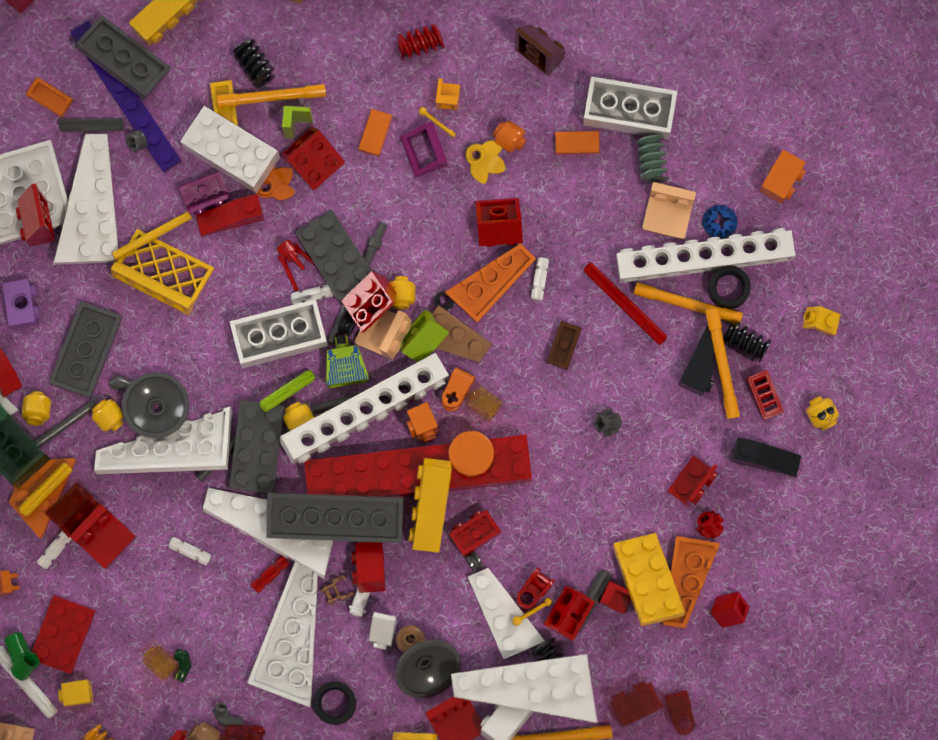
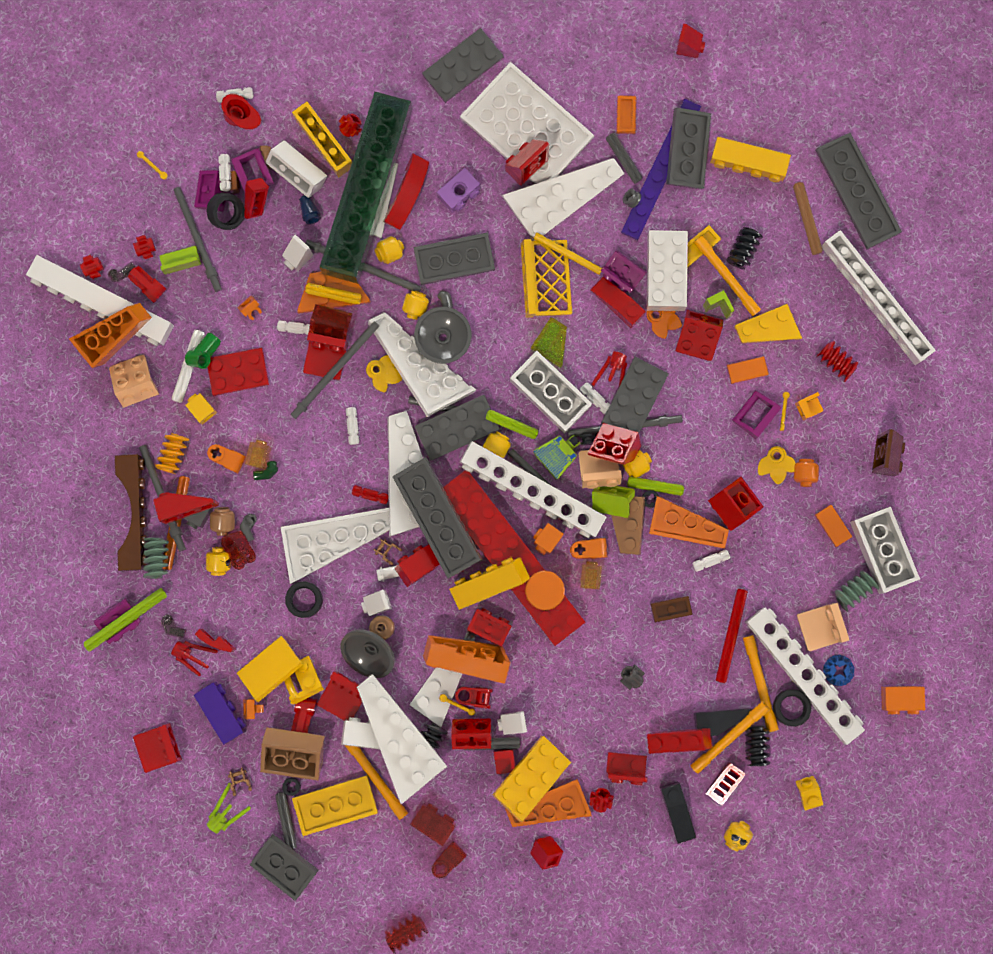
camera: 60 degrees right, 5 degrees up
(123, 535) = (302, 406): none -> dark grey bar
(146, 694) = (229, 458): none -> orange piece
(159, 486) = (386, 375): none -> yellow plate
(229, 303) = (551, 342): none -> clear neon green wing
(345, 87) = (769, 326): none -> yellow wing
(434, 288) = (656, 486): none -> lime axle
(491, 570) = (467, 657): none -> orange wedge
(583, 565) = (512, 723): none -> white slope
(696, 413) = (679, 741): none -> red brick

